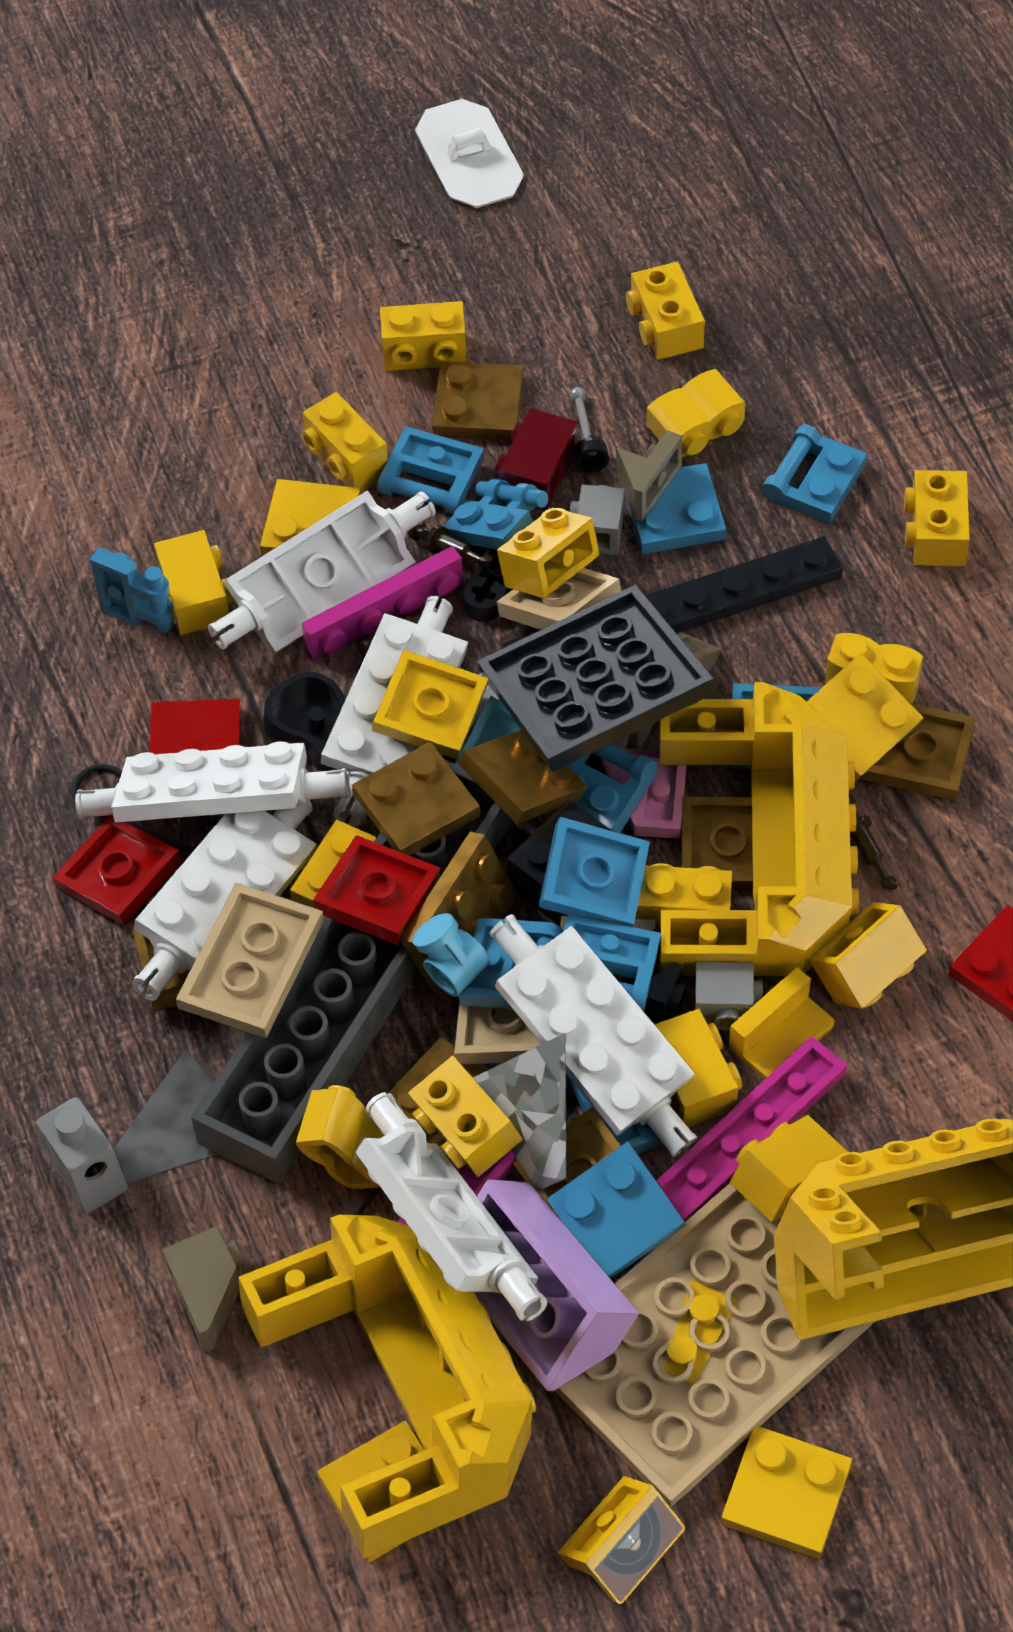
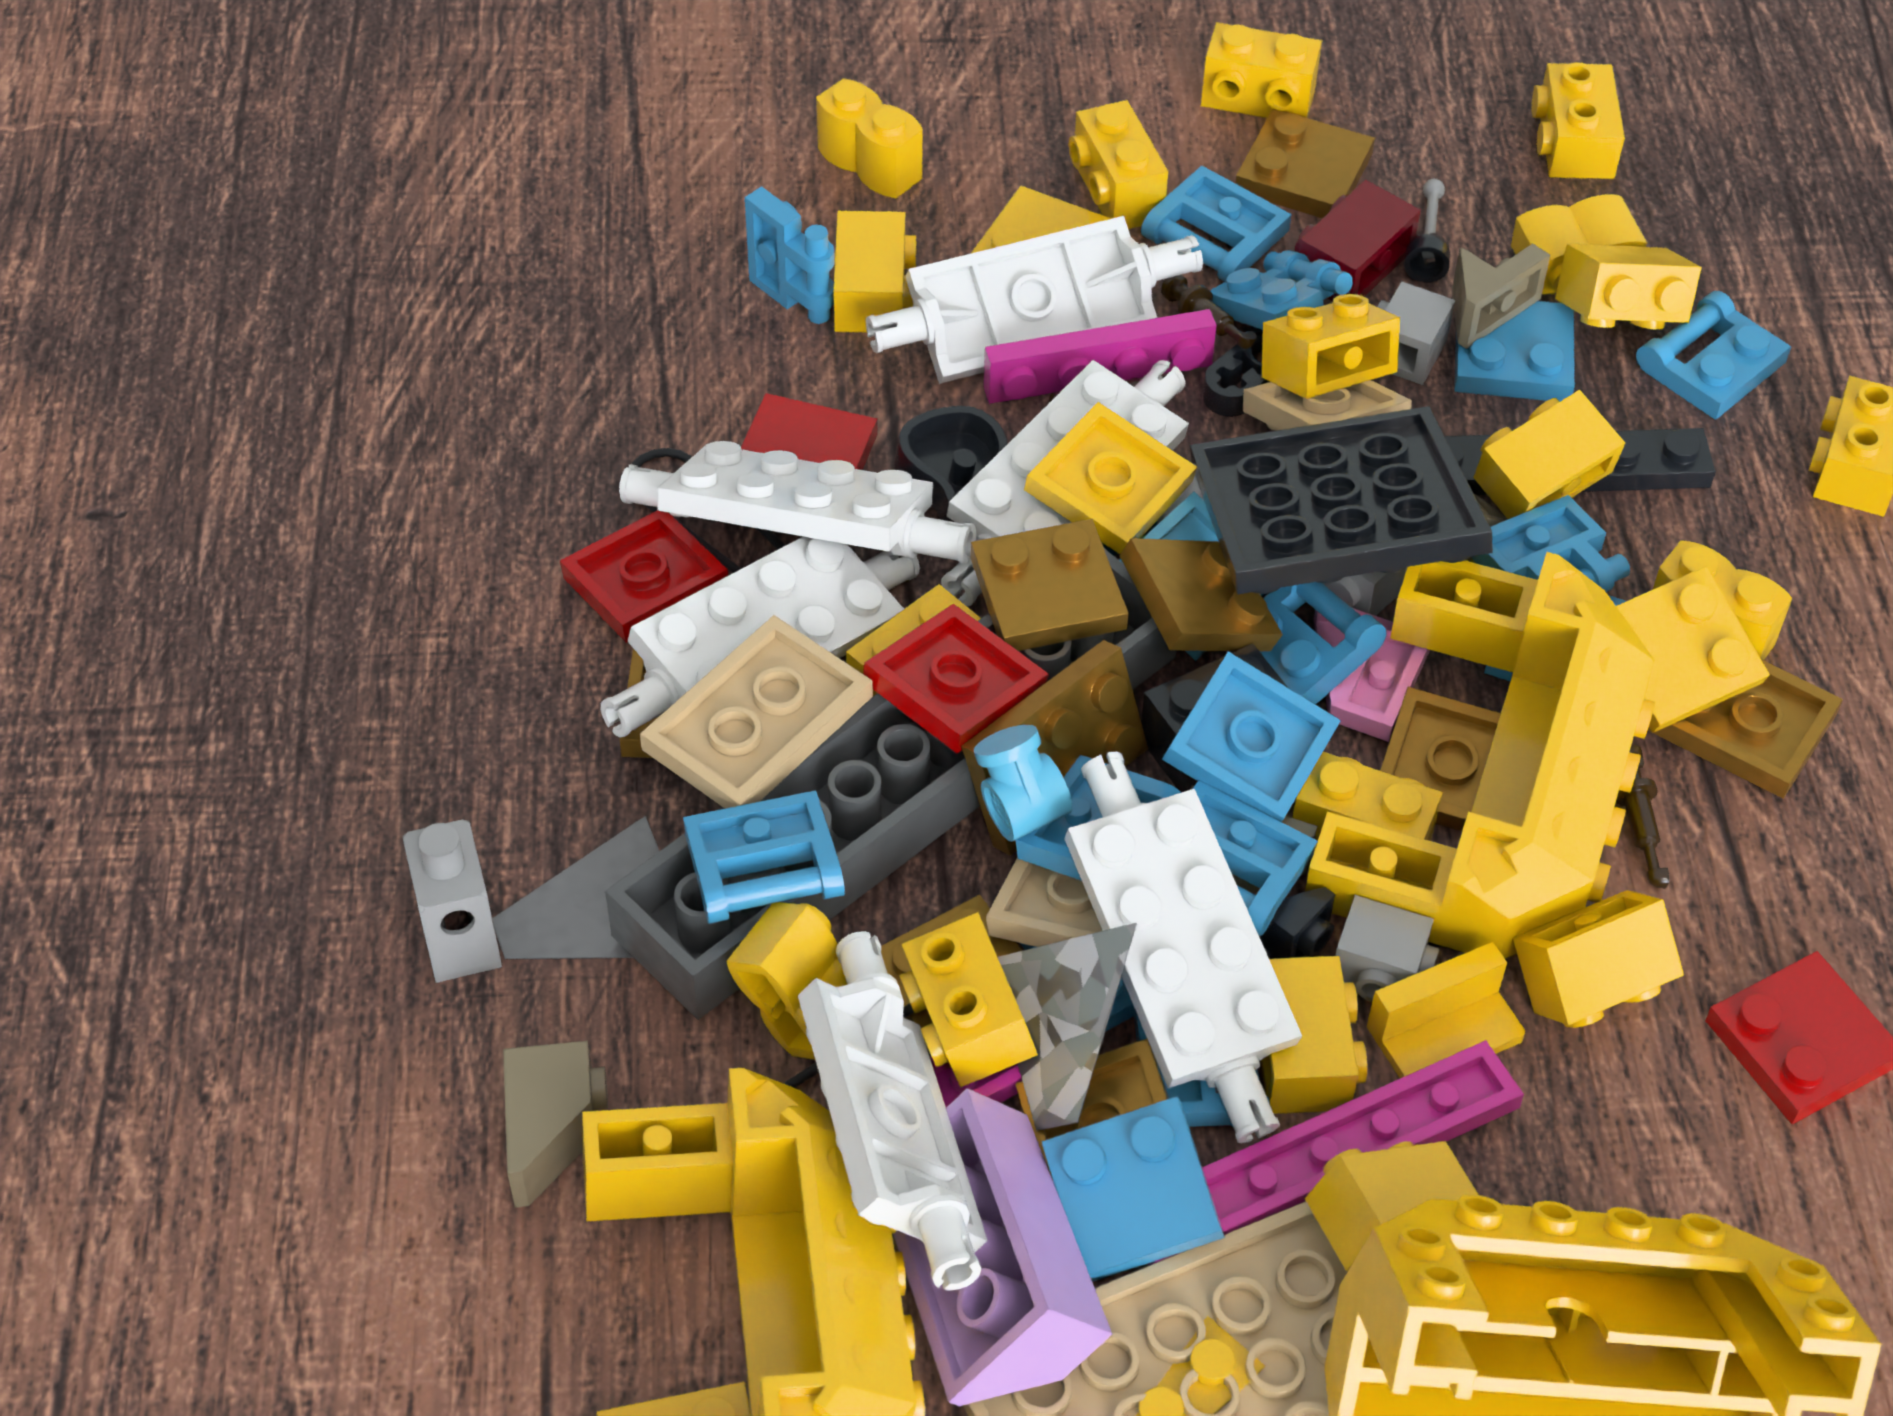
camera: 15 degrees right, 5 degrees down
(152, 472) = (869, 138): none -> yellow brick
(287, 1049) = (761, 839): none -> dark azure plate
(727, 597) = (1548, 457): none -> yellow brick
(741, 440) = (1627, 284): none -> yellow brick
(748, 656) = (1558, 529): none -> dark azure plate

